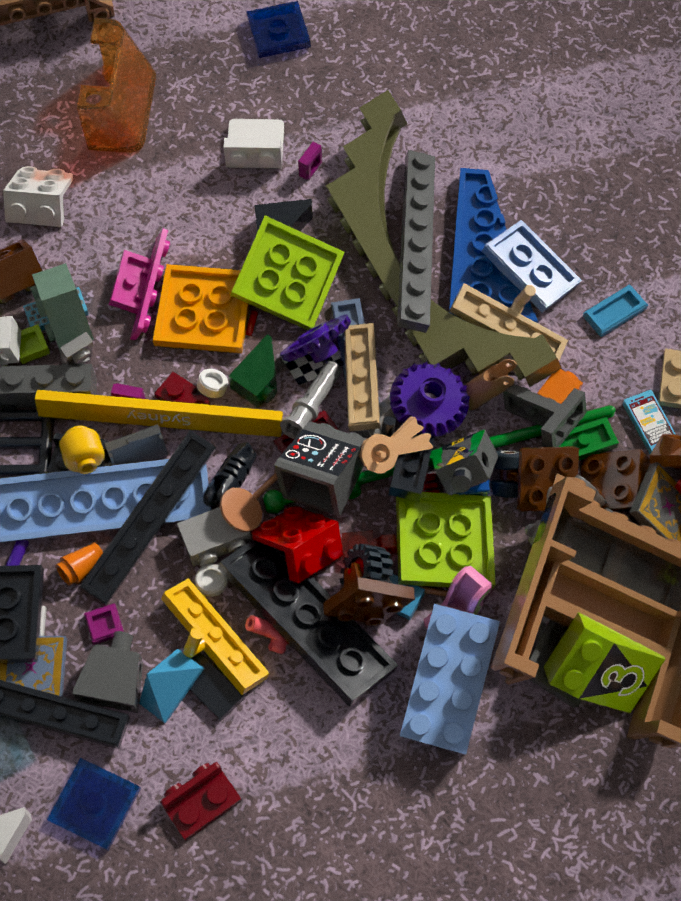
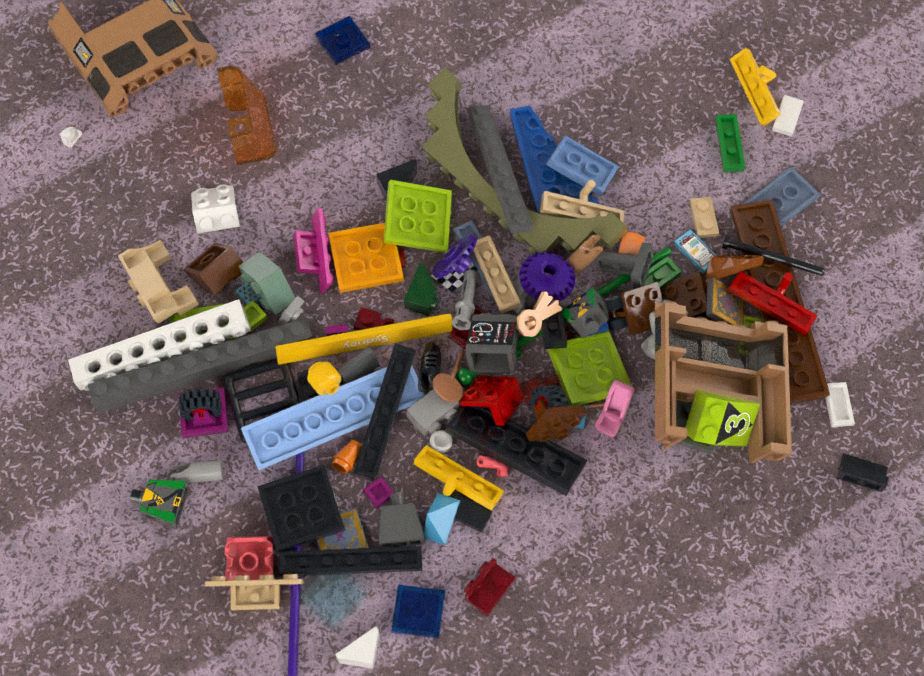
camera: 20 degrees left, 0 degrees up
(212, 383) = (391, 307): white tile -> none
(254, 143) = (357, 128): white bracket -> none
(310, 161) = (402, 131): magenta tile -> none
(449, 679) = (626, 457): light blue brick -> none
(615, 310) = (648, 181): dark azure tile -> none

